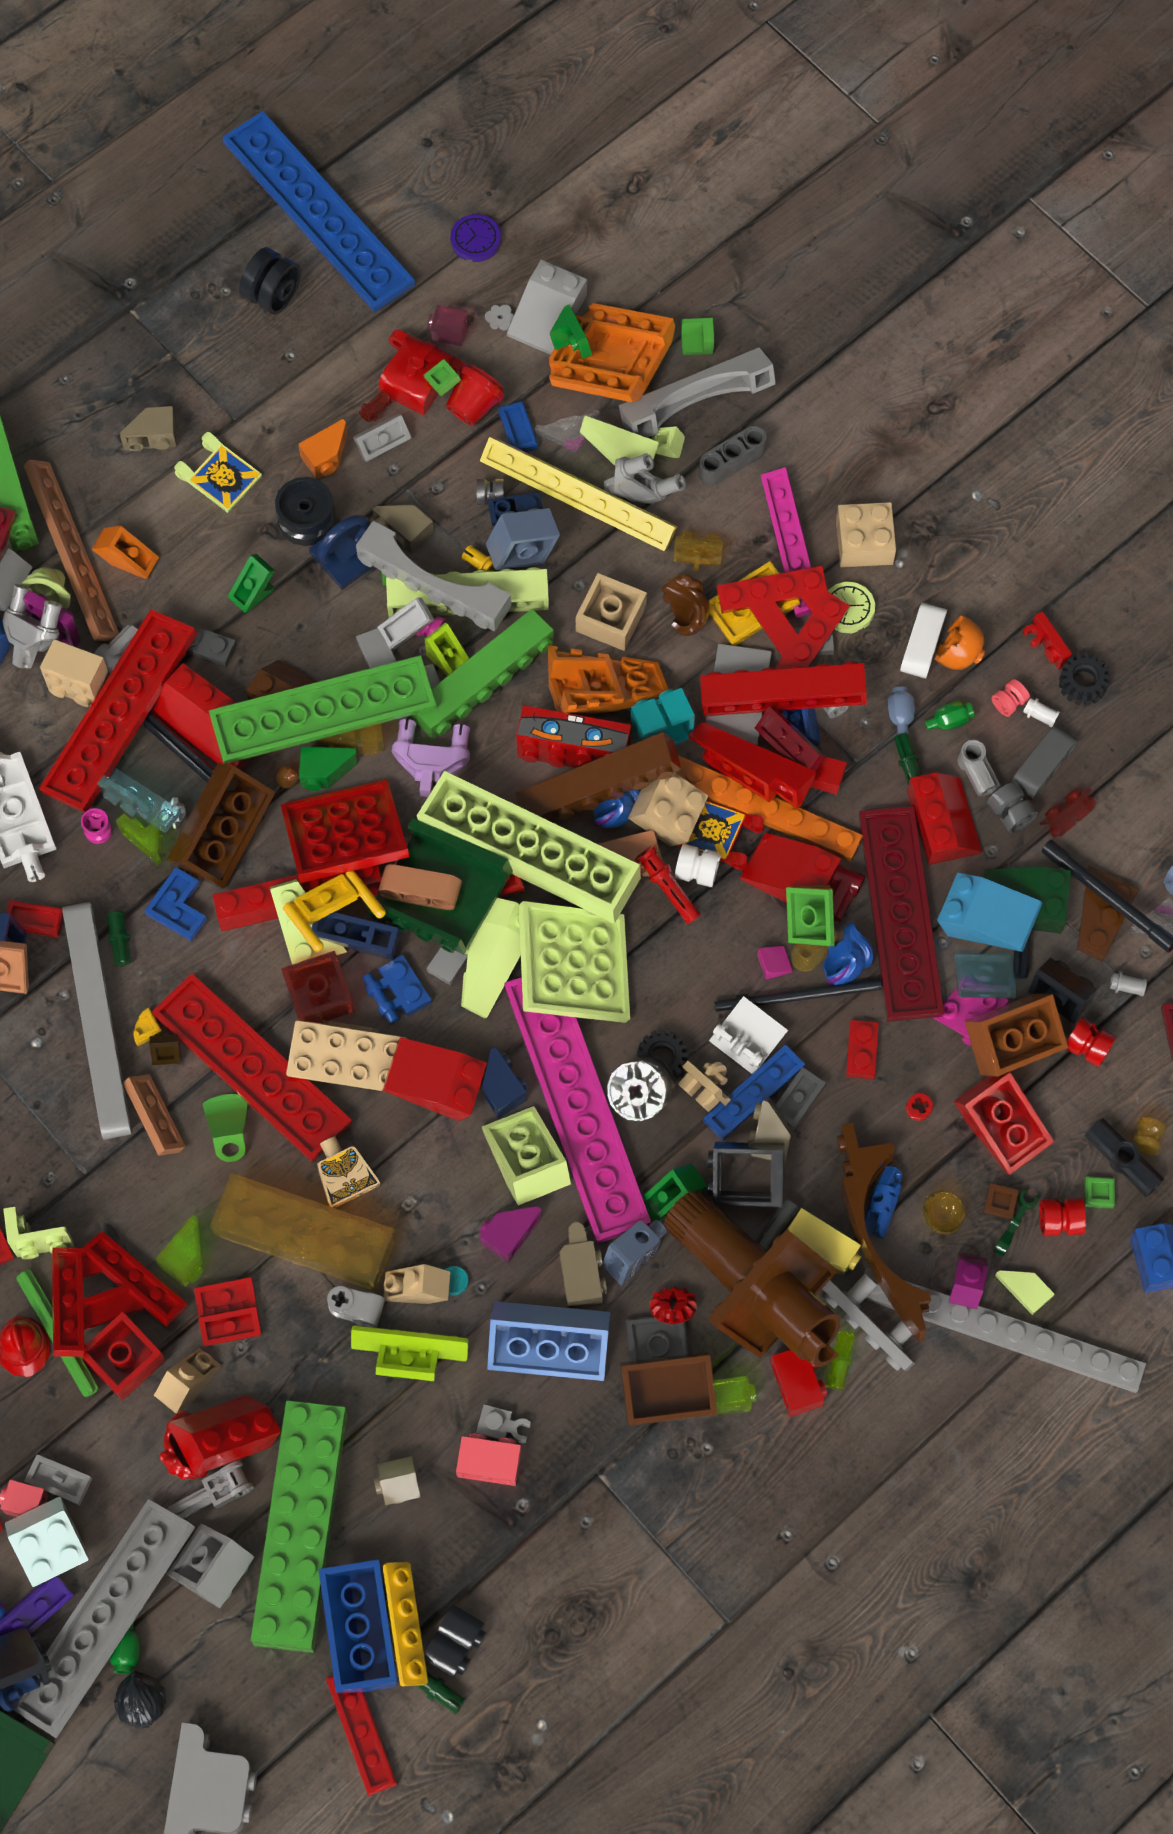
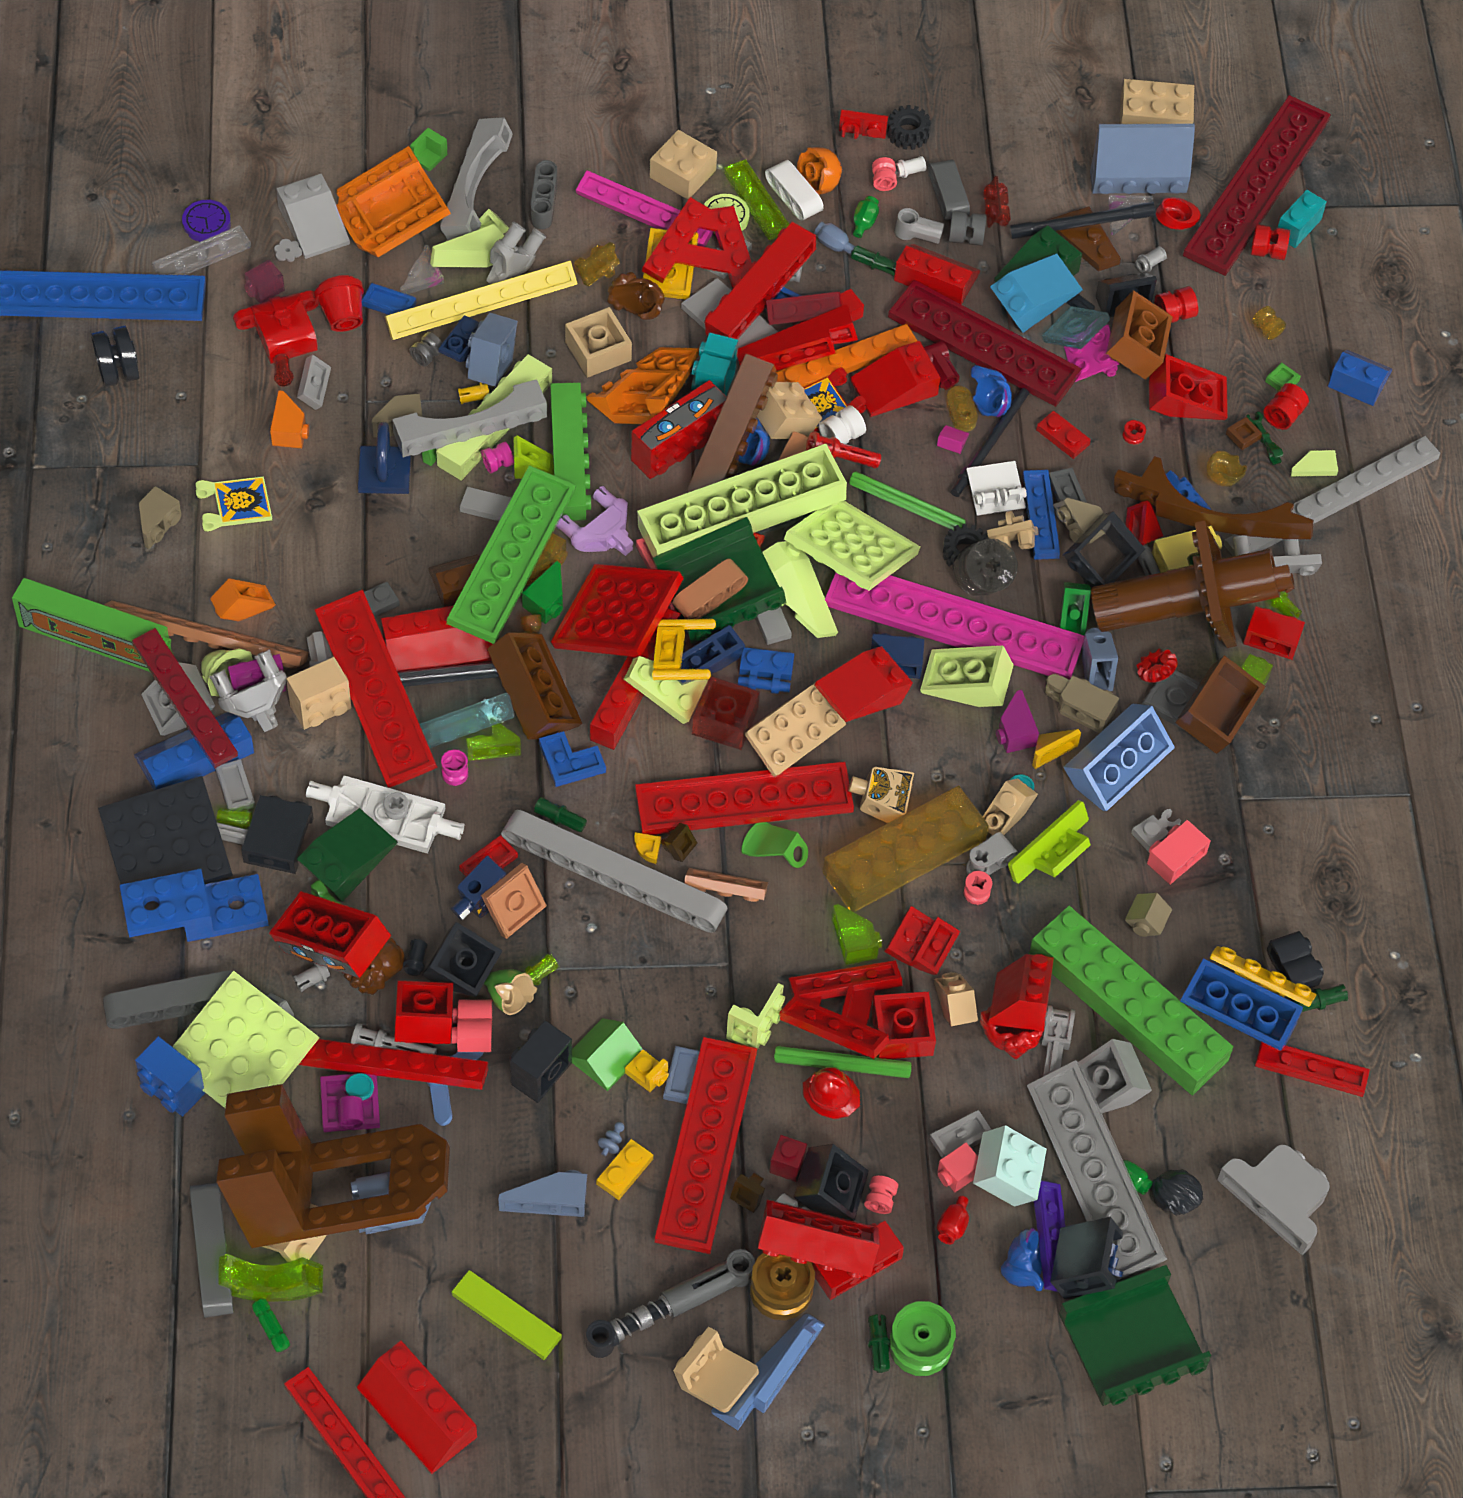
camera: 55 degrees left, 10 degrees down
(11, 805) = (396, 813): none -> light grey bush
(252, 584) = (353, 538): green slope -> none
(305, 510) = (329, 465): black wheel -> none
(319, 1323) = (976, 894): none -> coral wheel
(406, 623) = (485, 464): light grey tile -> none
(439, 261) = (203, 253): none -> clear tile
(442, 377) = (314, 305): bright green plate -> none
(514, 1275) = (1054, 745): none -> yellow slope
(569, 332) = (355, 208): green slope -> none
(671, 974) = (906, 501): none -> bright green axle
(810, 915) = (950, 381): bright green slope -> none
(816, 1187) = (1143, 522): none -> red slope
(886, 619) = (757, 198): none -> clear neon green plate
(968, 1280) = (1288, 485): magenta slope -> none
(1111, 1143) = (1273, 345): black piece -> none

